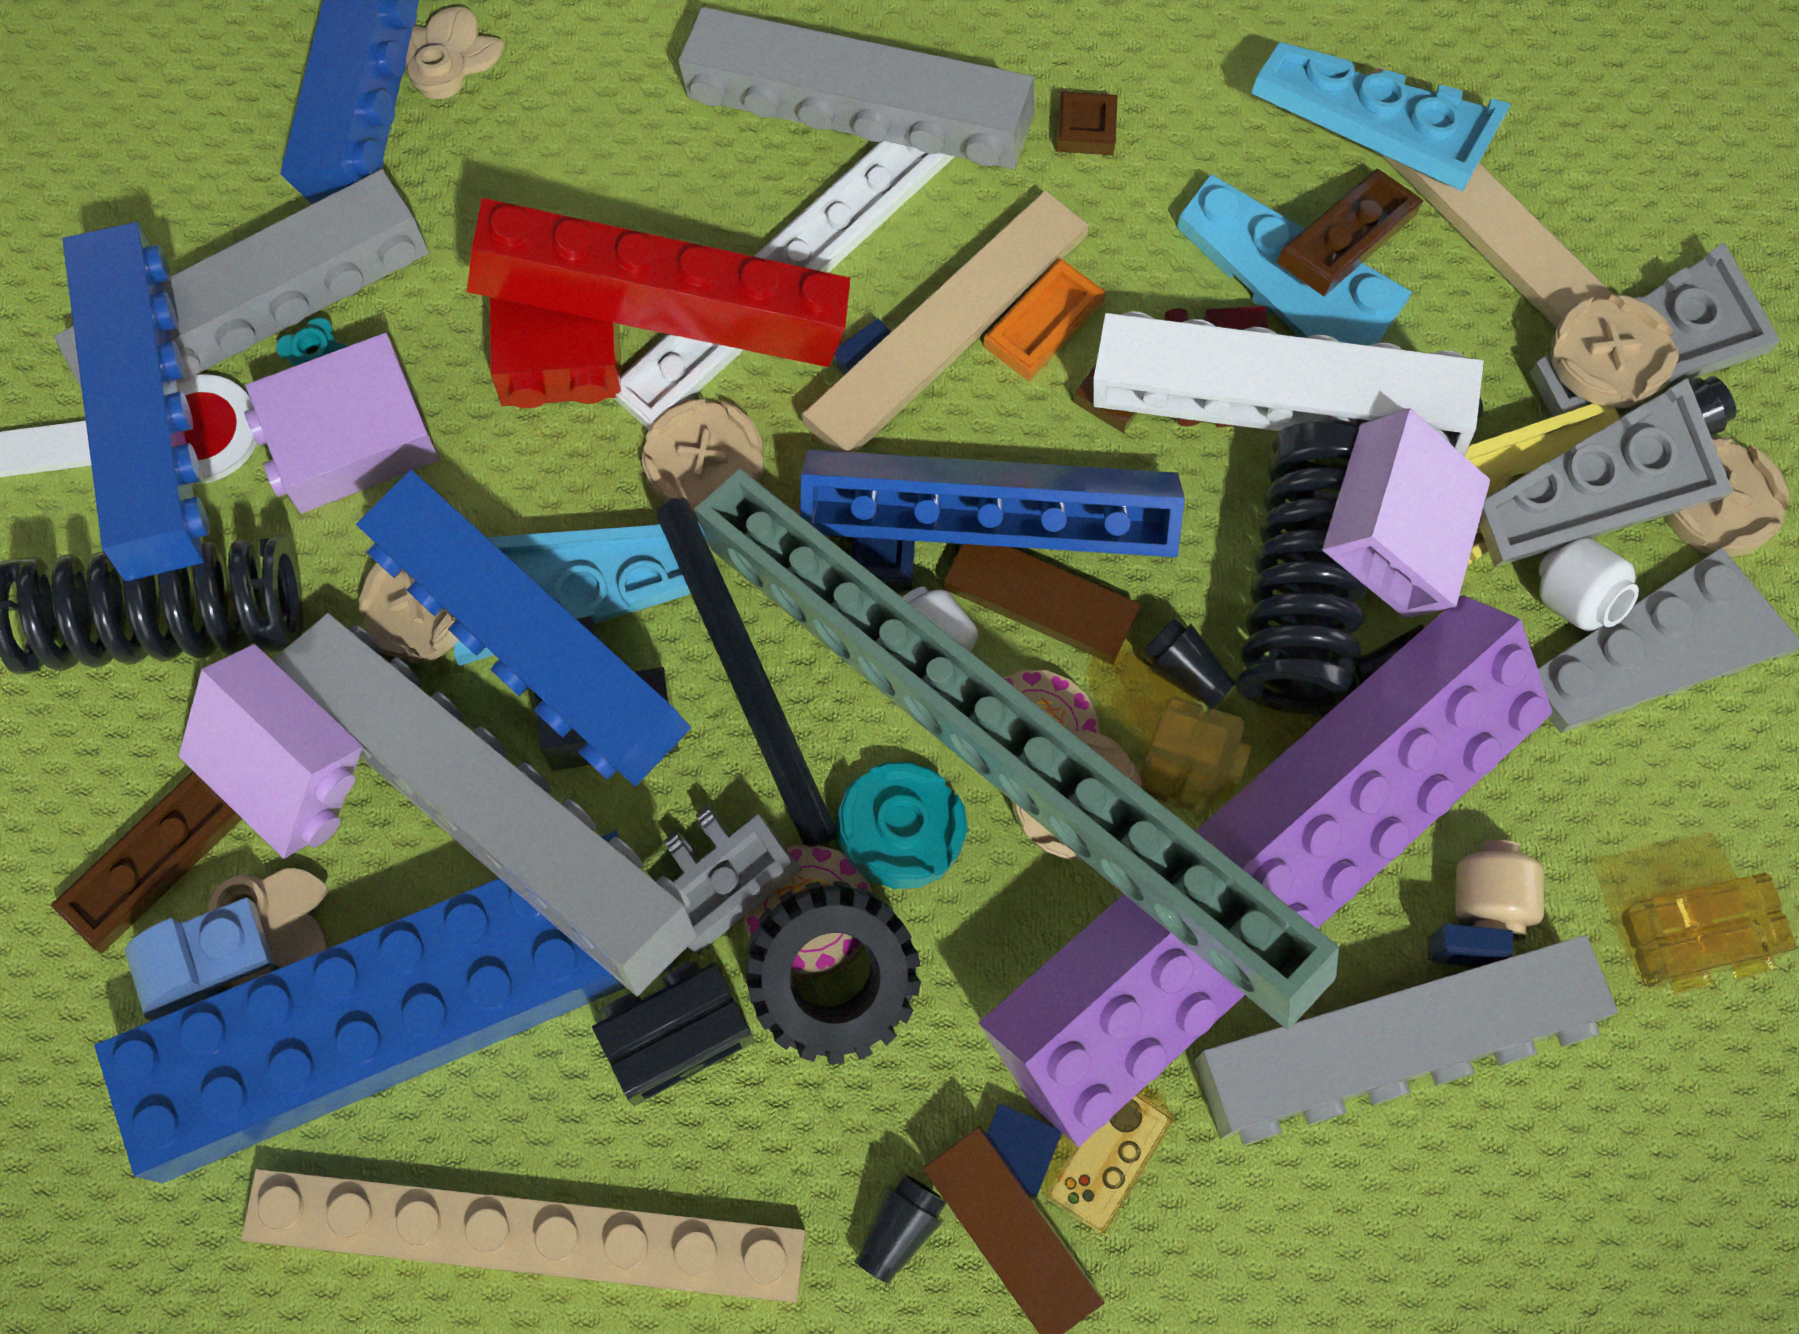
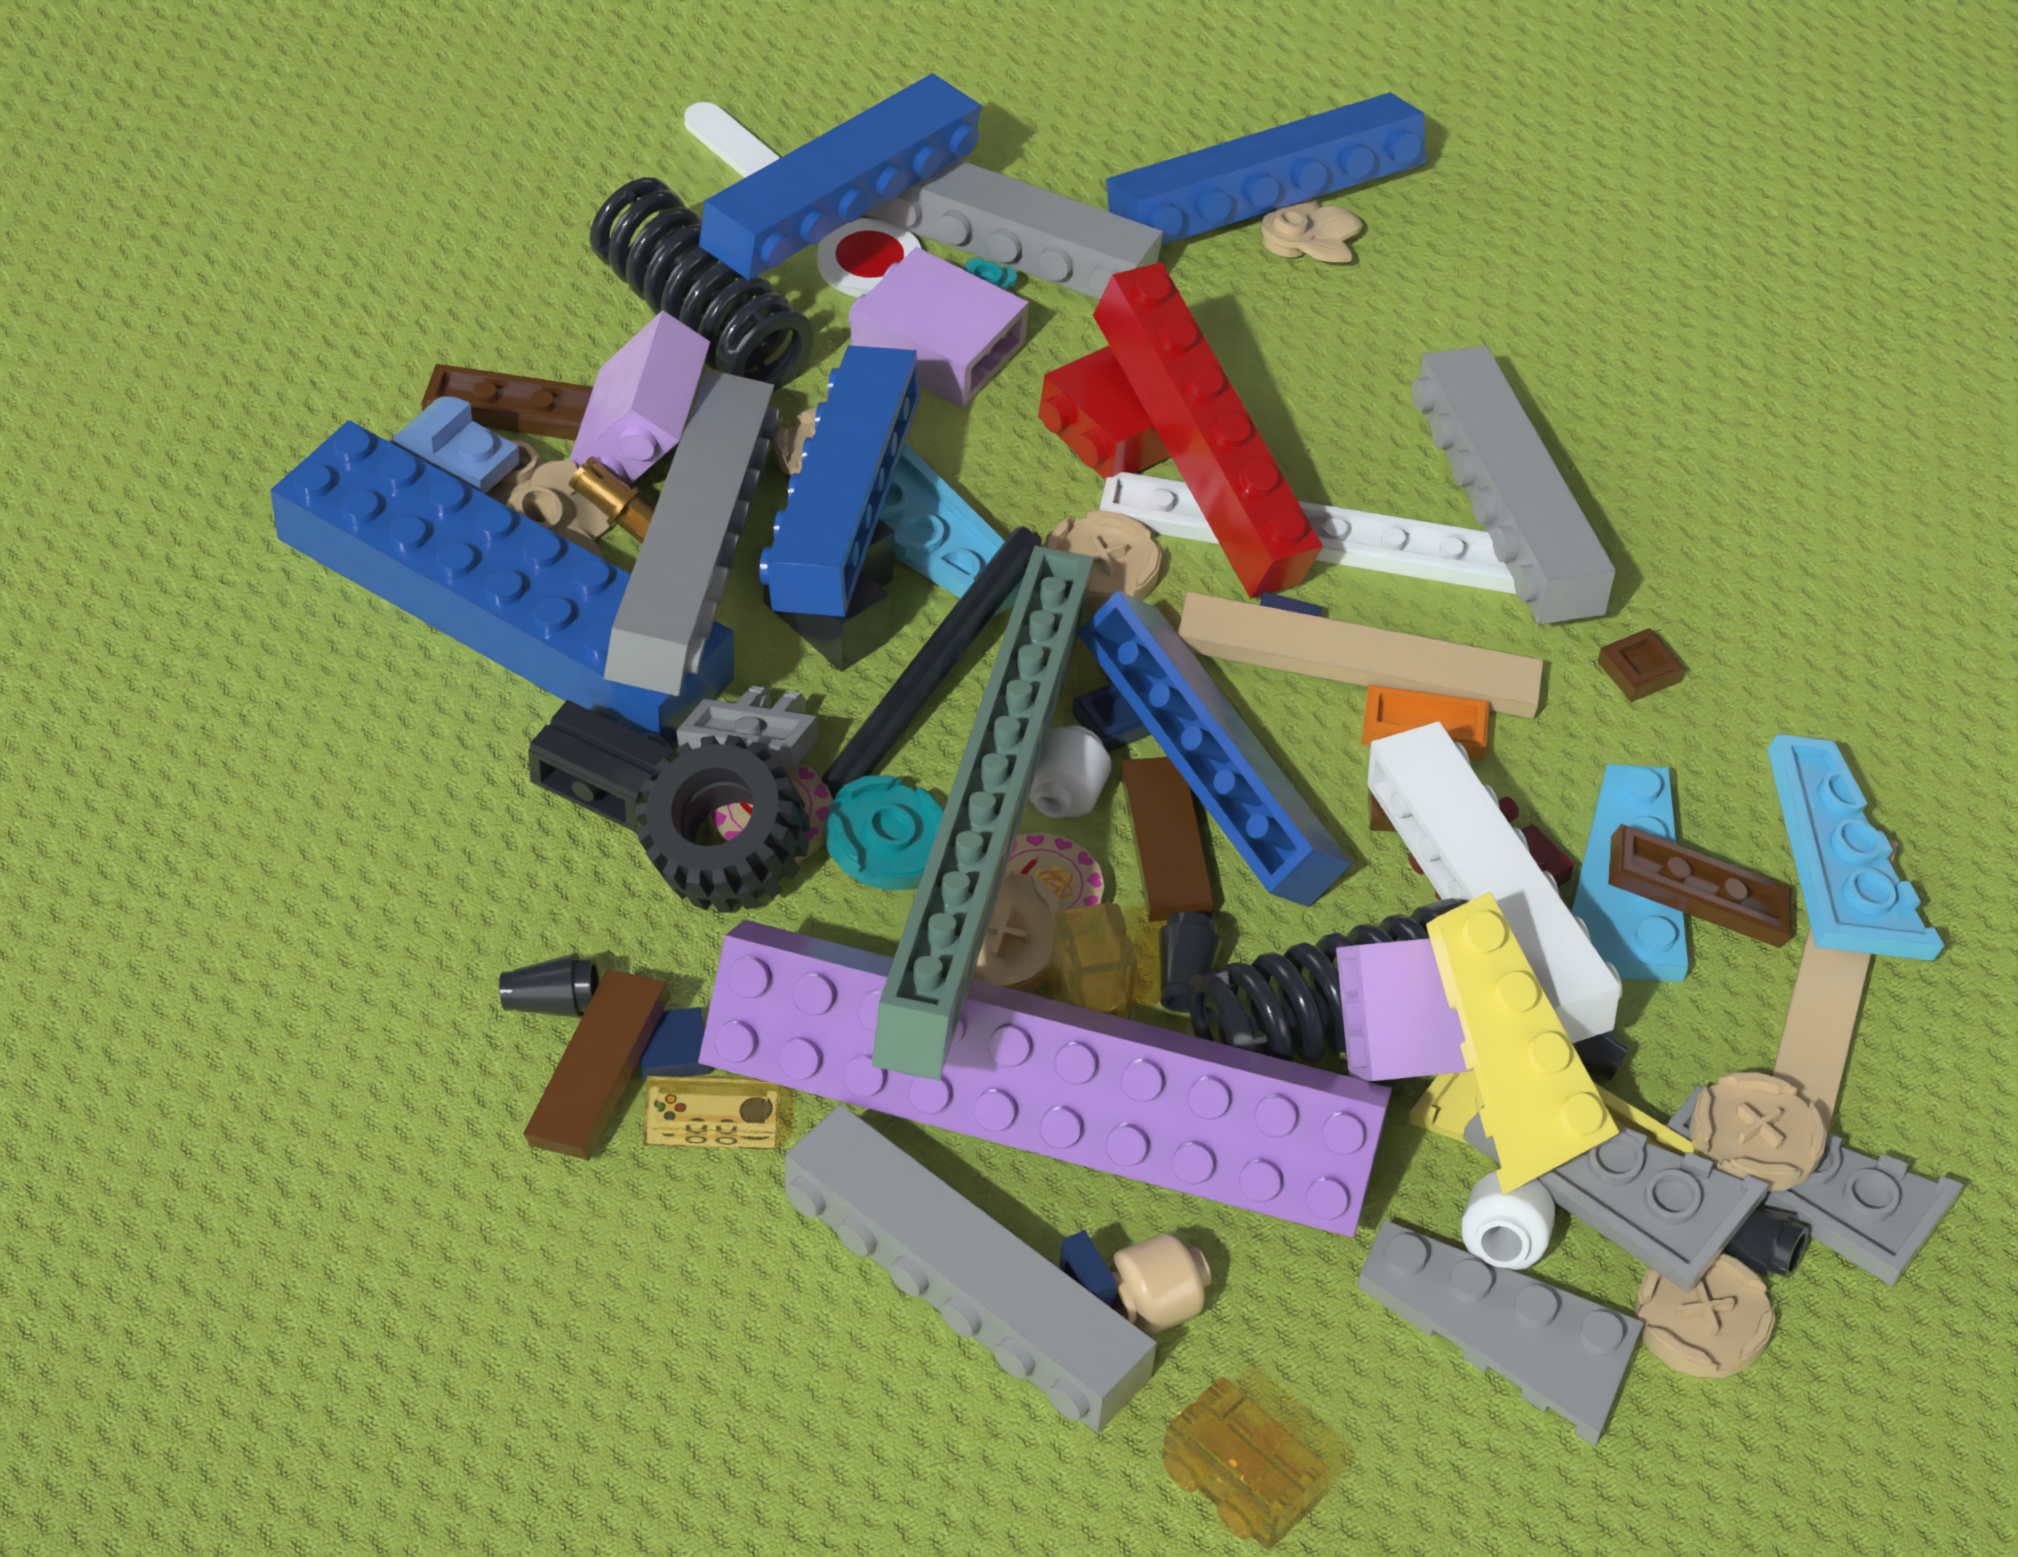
camera: 55 degrees right, 20 degrees down
(337, 891) = (560, 506): none -> tan plate
(368, 836) = (613, 498): none -> pearl gold axle
(525, 1236) = (387, 771): tan plate -> none
(1506, 476) = (1526, 1068): none -> light yellow wing

